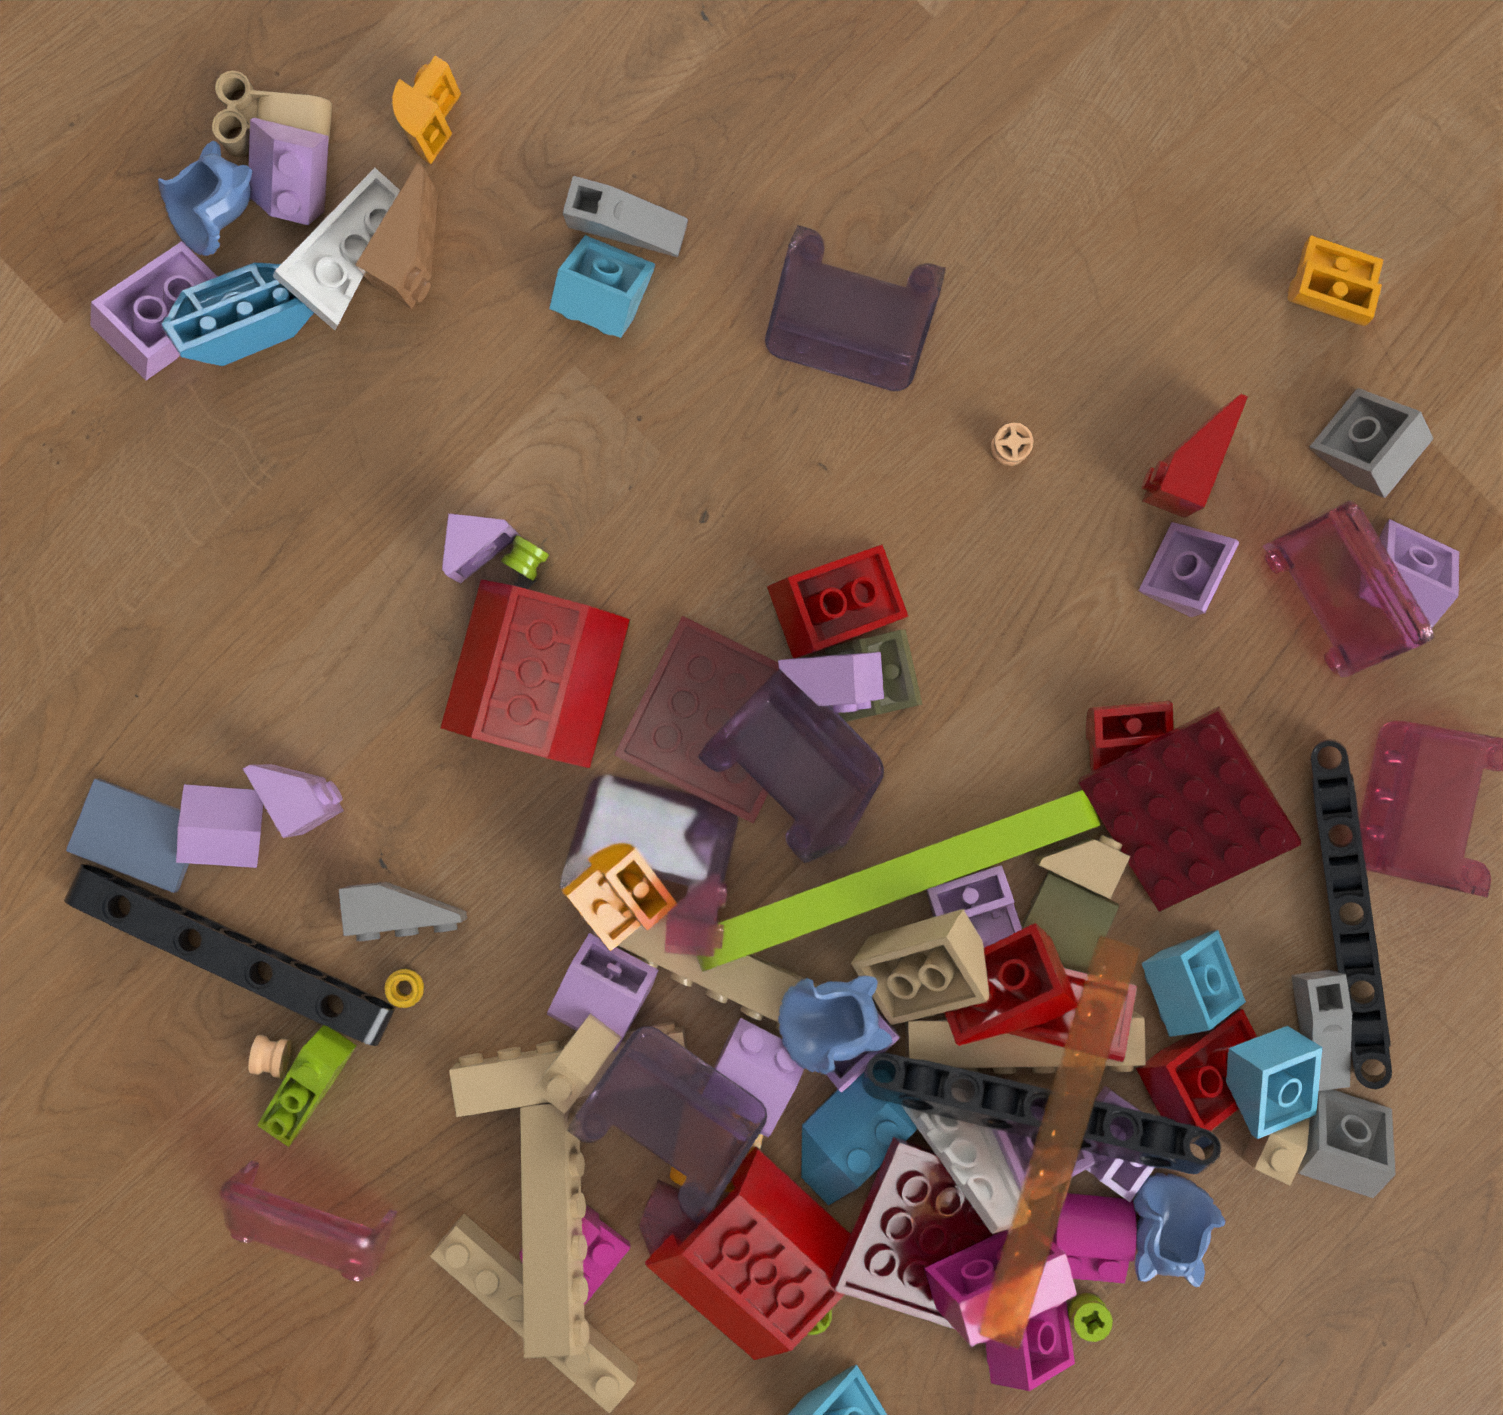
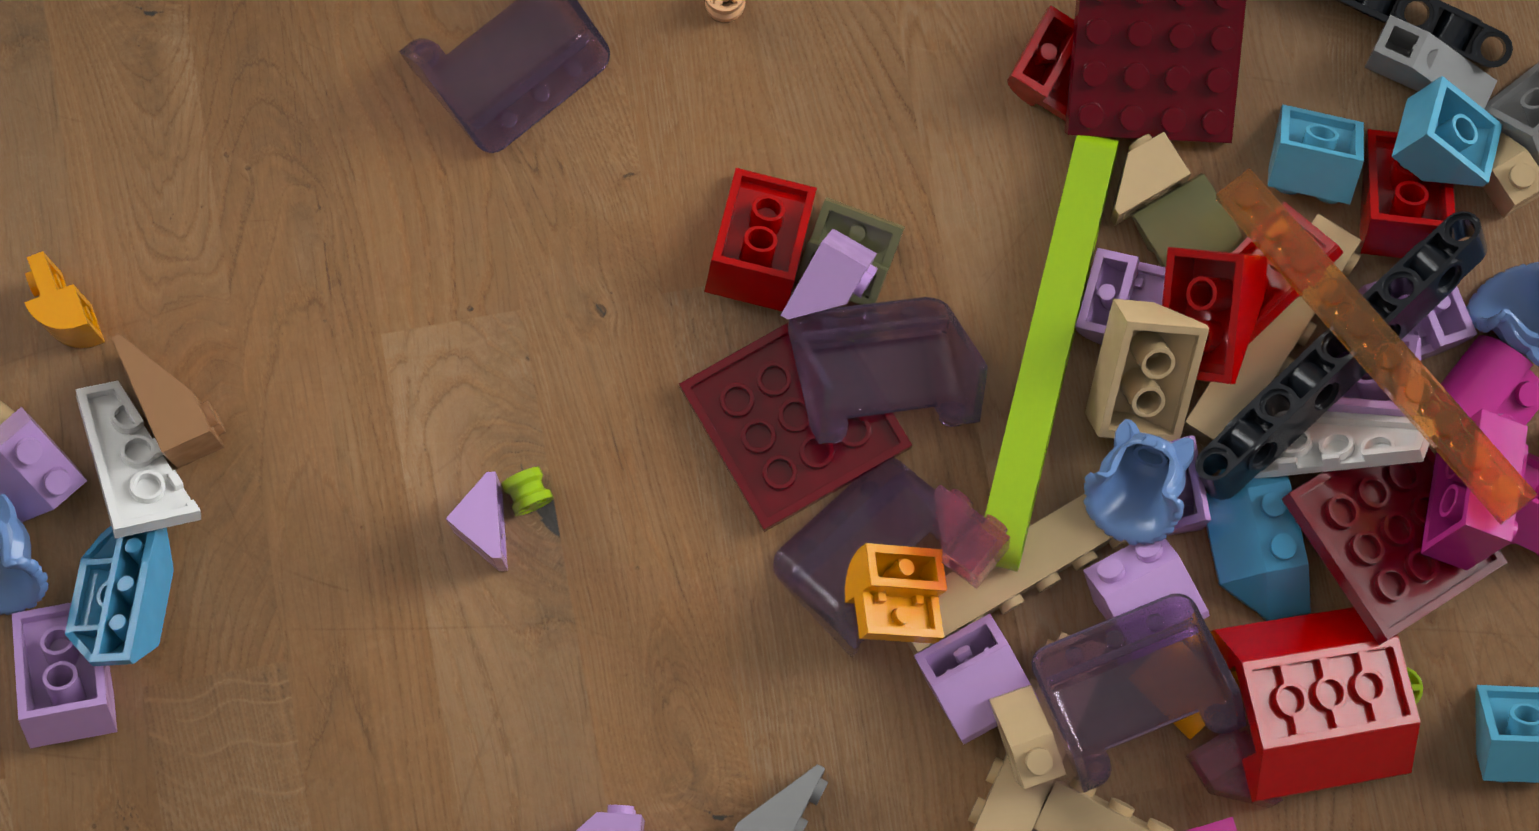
camera: 60 degrees left, 10 degrees down
(535, 673) = (637, 551): red slope -> none
(601, 286) = (330, 259): medium azure slope -> none
(623, 217) = (282, 198): light grey slope -> none

